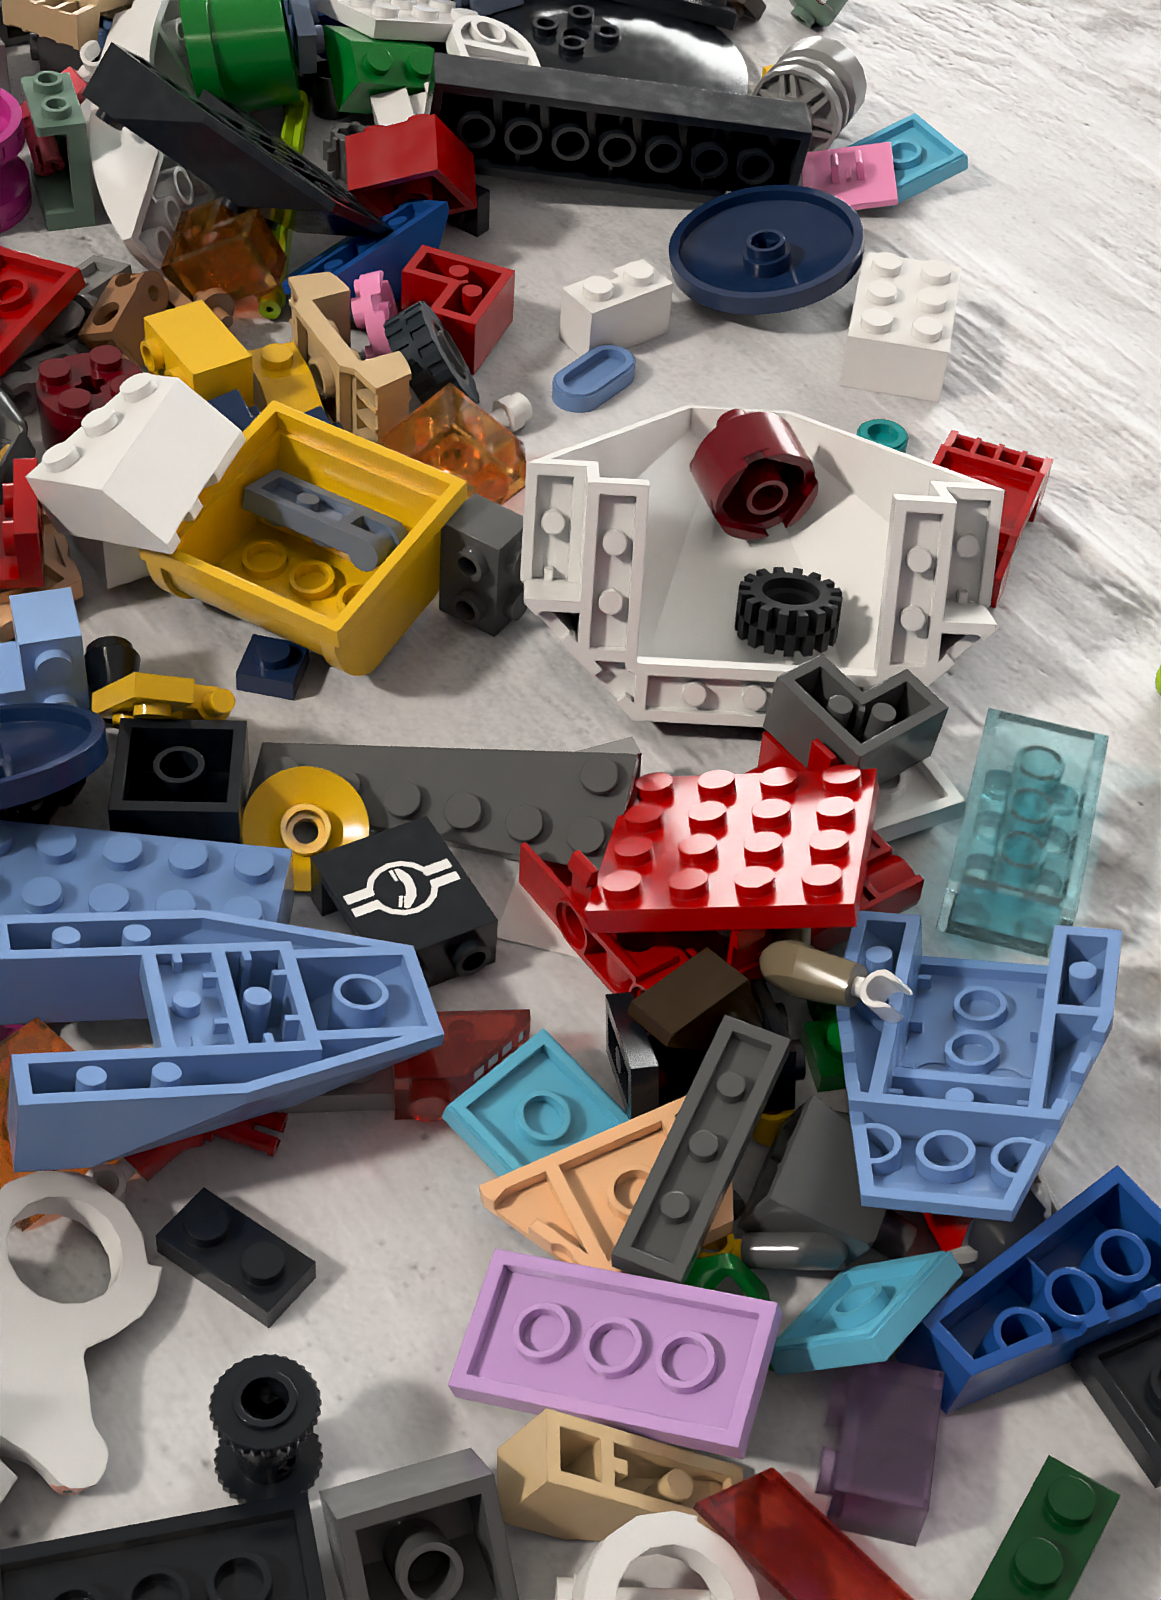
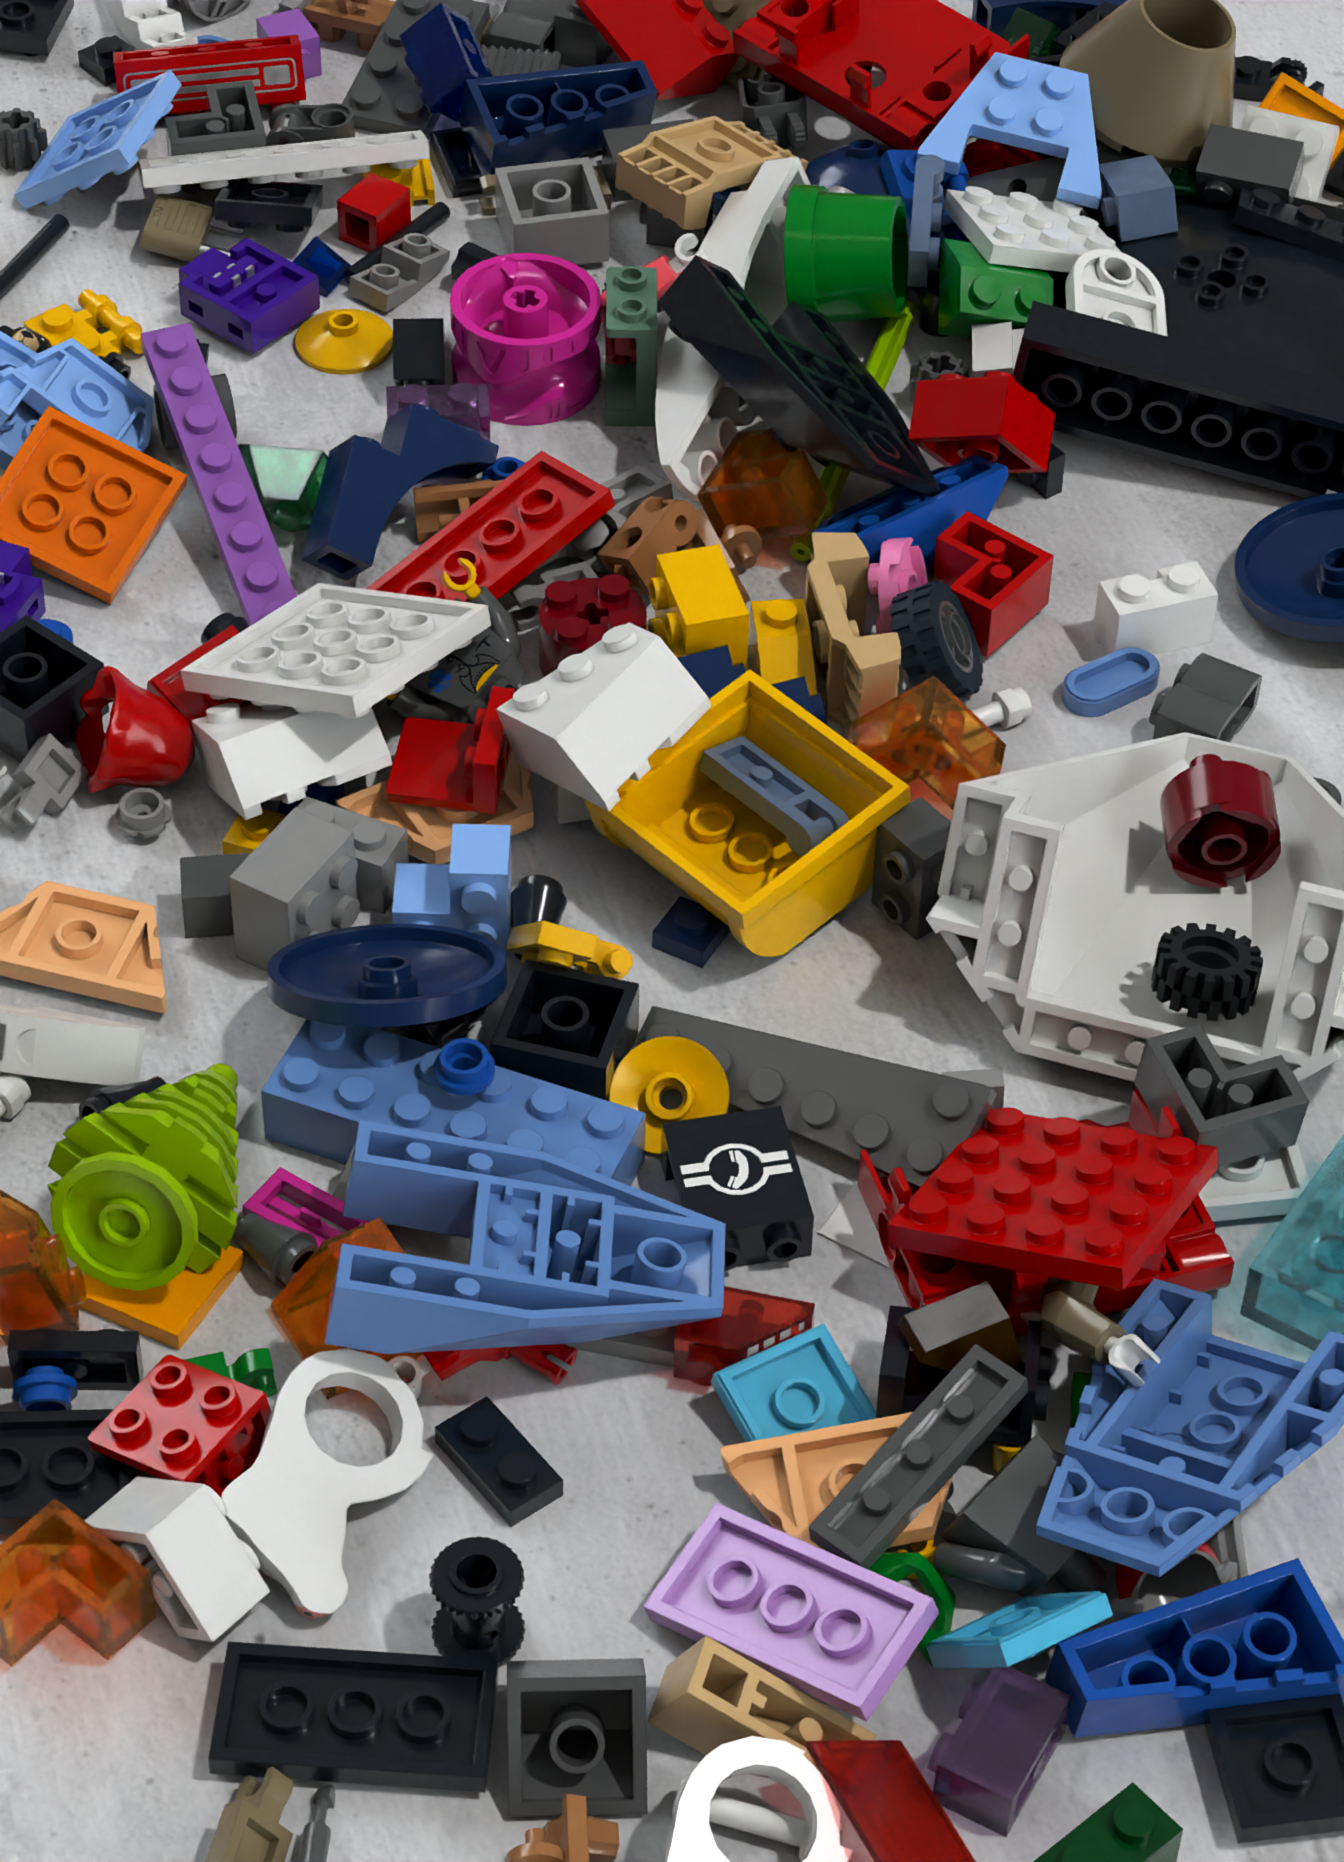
camera: 20 degrees right, 0 degrees up
(89, 838) = (464, 1067): none -> blue plate
(688, 375) = (1207, 700): none -> dark grey brick

